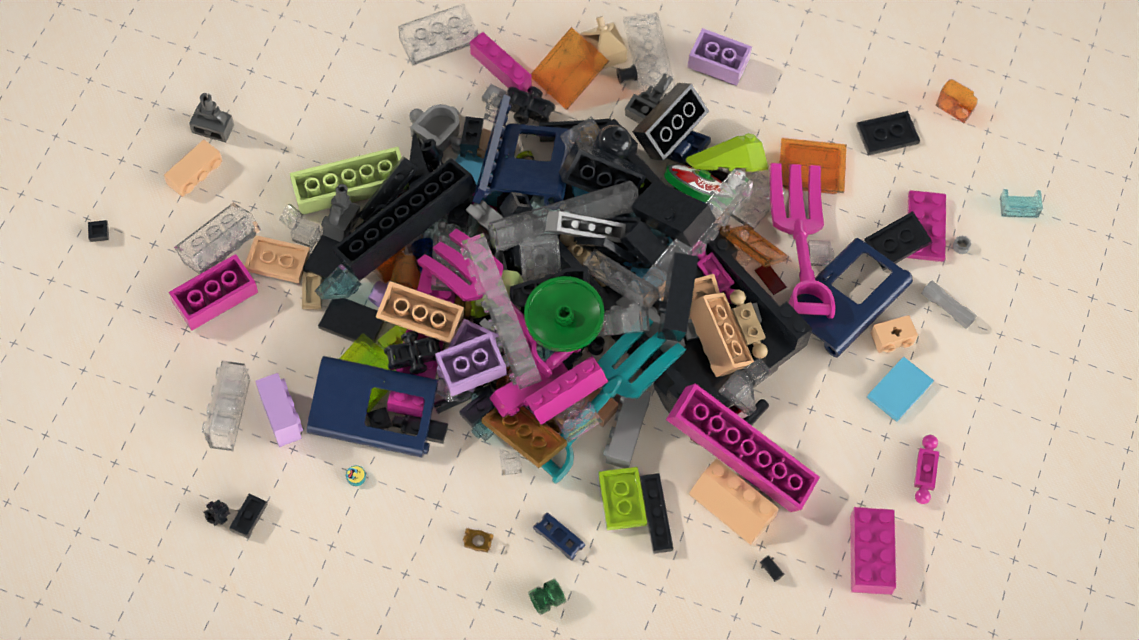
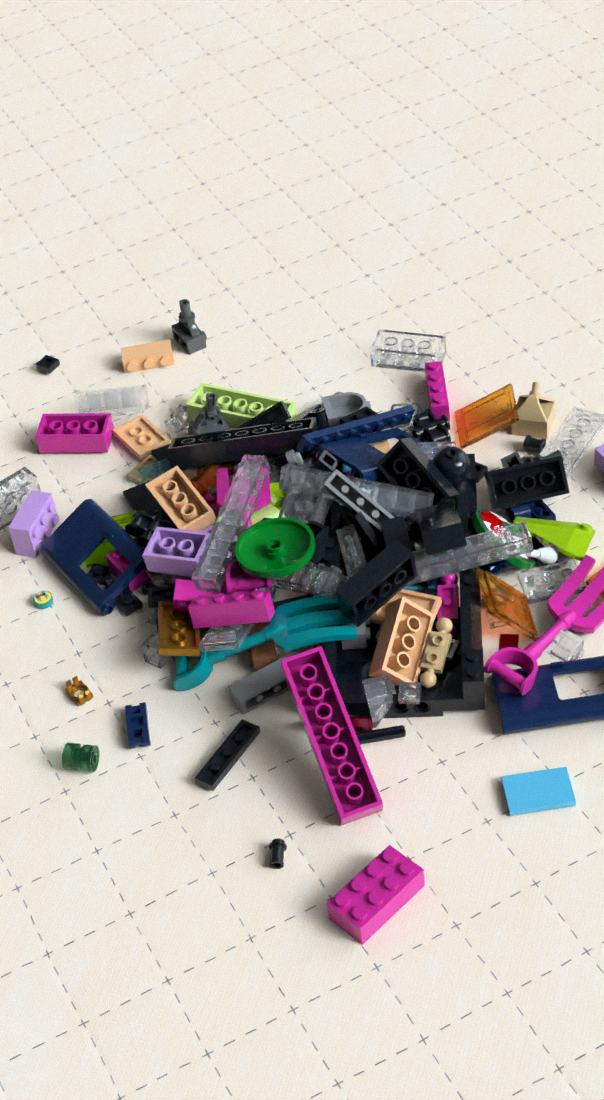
camera: 50 degrees right, 20 degrees down
(622, 498) = (211, 727): lime plate -> none
(733, 501) = (297, 785): light nougat slope -> none
(894, 334) = (574, 744): light nougat brick -> none
(926, 469) = (495, 865): dark pink plate -> none

